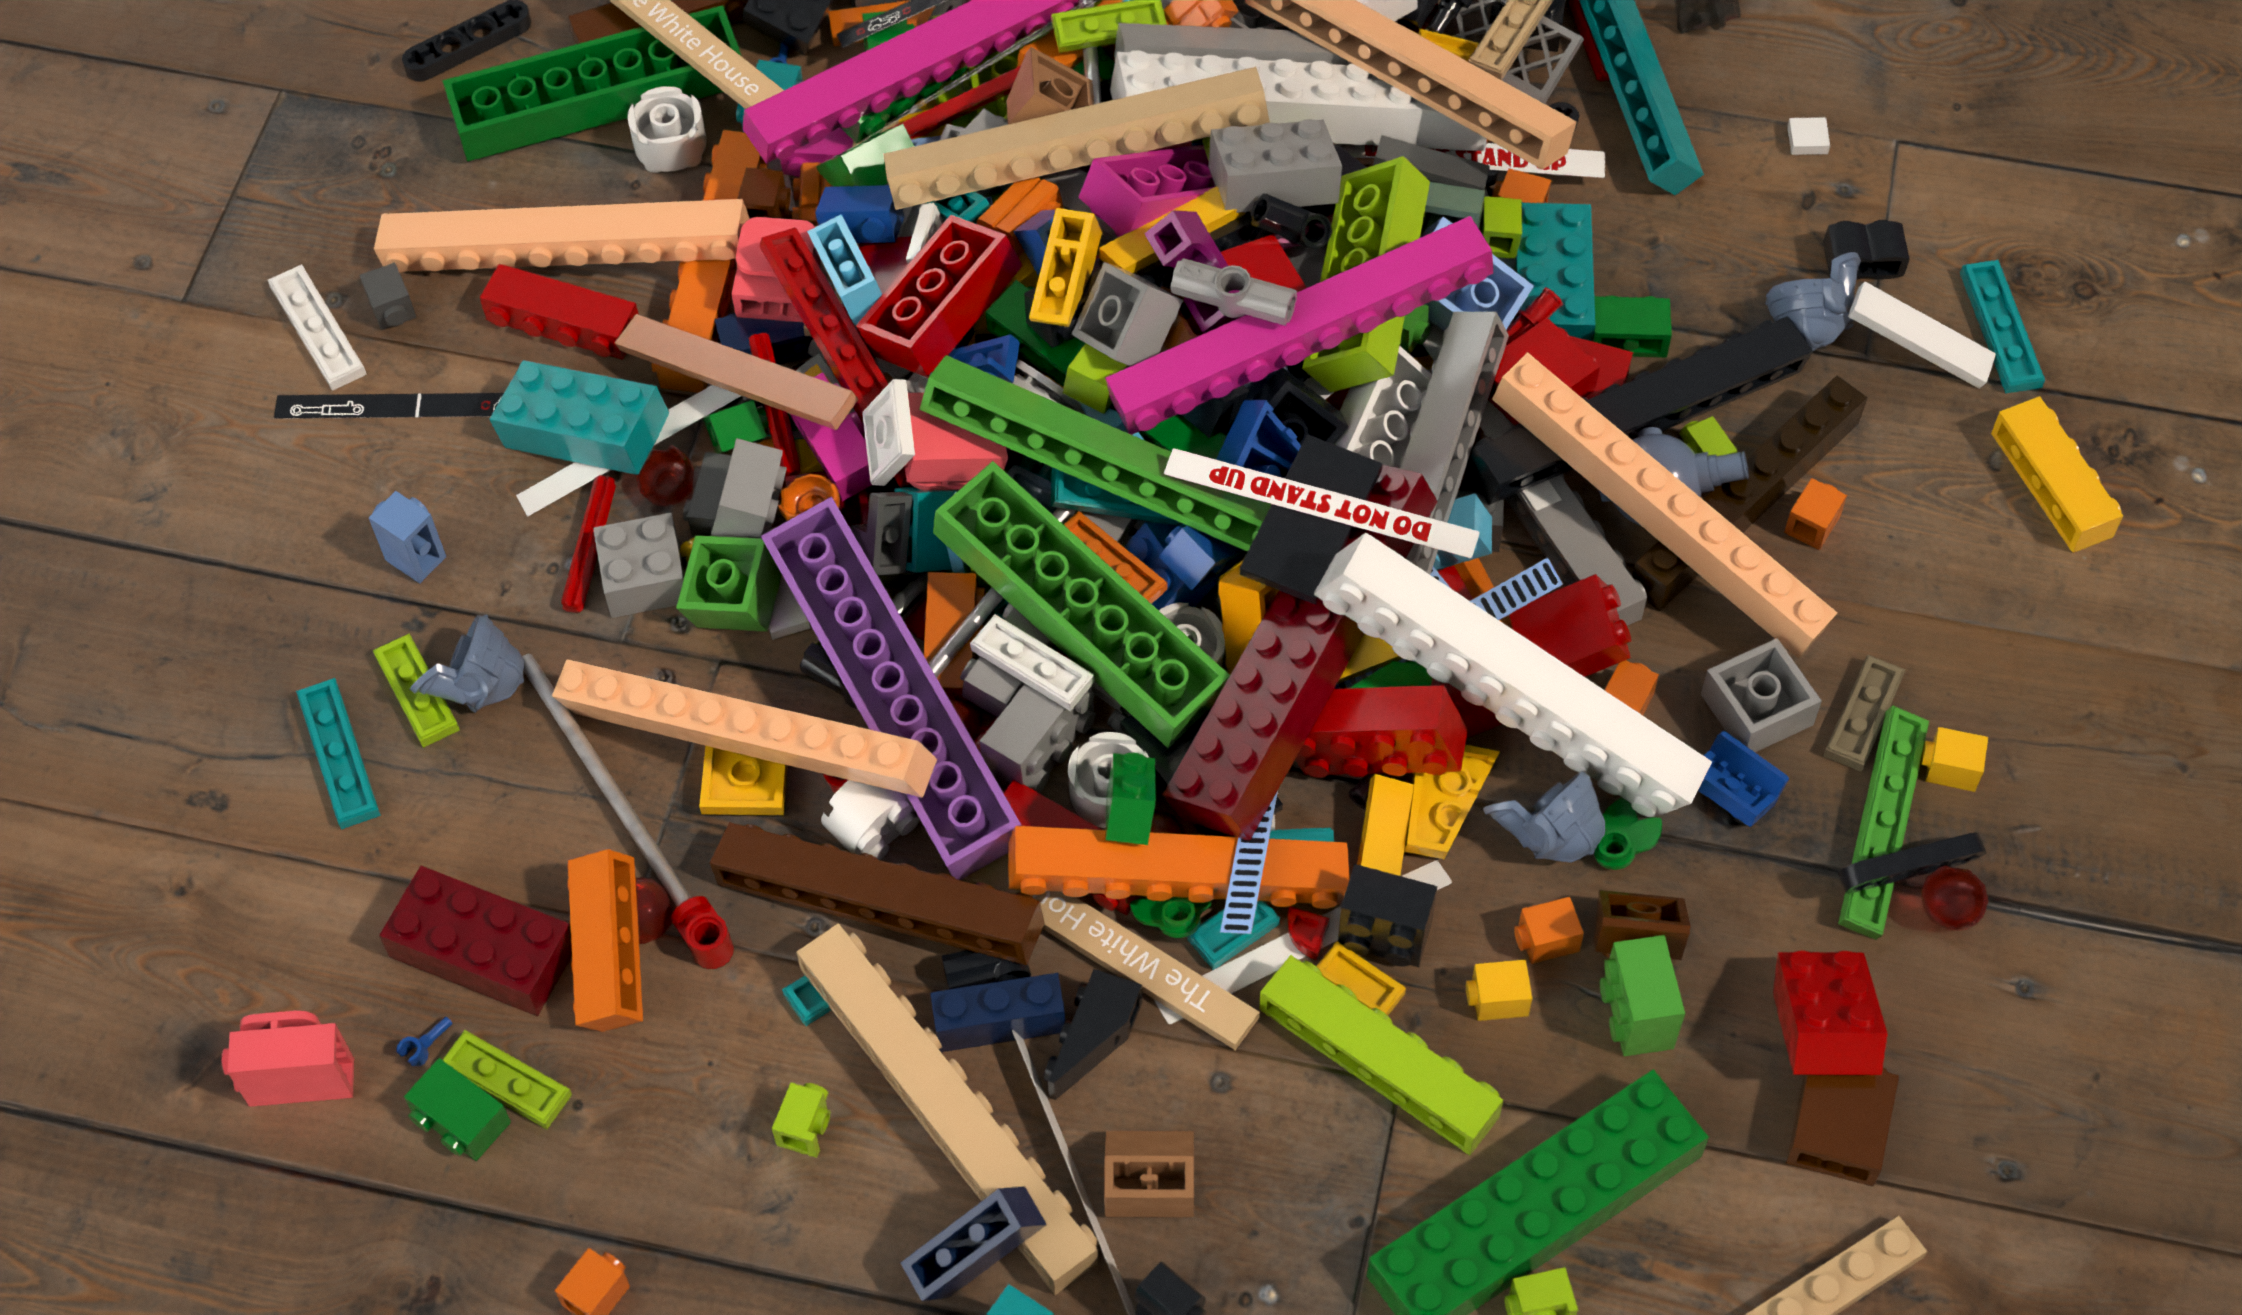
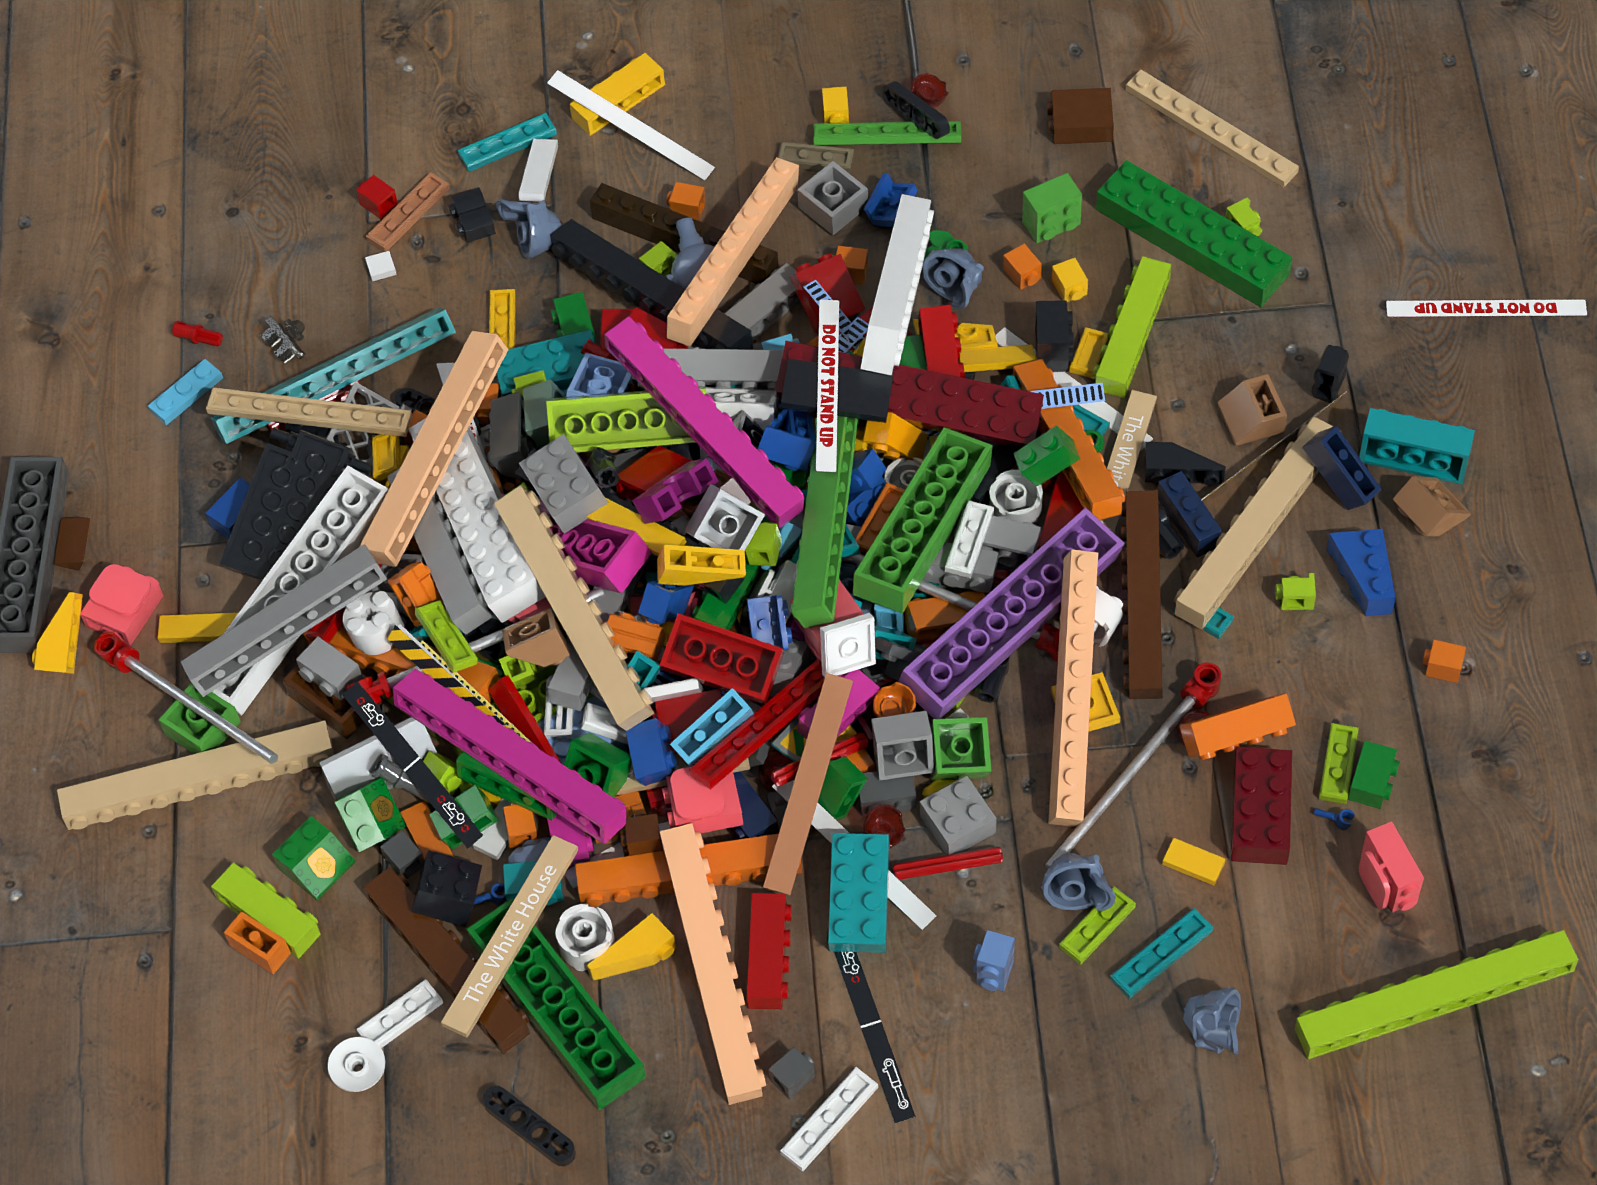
camera: 105 degrees left, 0 degrees up
(92, 1071) = (1435, 993): none -> lime brick
(199, 764) = (1214, 1019): none -> sand blue head
(447, 834) = (1193, 861): none -> yellow tile
(628, 174) = (637, 949): none -> yellow slope
(797, 1231) = (1366, 568): none -> blue wedge
(1254, 297) = (703, 459): light grey piece -> none
(1307, 931) = (1069, 379): red tile -> none
(1637, 916) = (1007, 217): reddish brown slope -> none
(1664, 252) = (503, 315): none -> yellow tile
(1829, 1013) = (1030, 123): red brick -> none
(1900, 185) = (407, 212): none -> nougat tile
(1931, 147) = (377, 196): none -> red brick
(1980, 470) = (631, 125): none -> white sticker

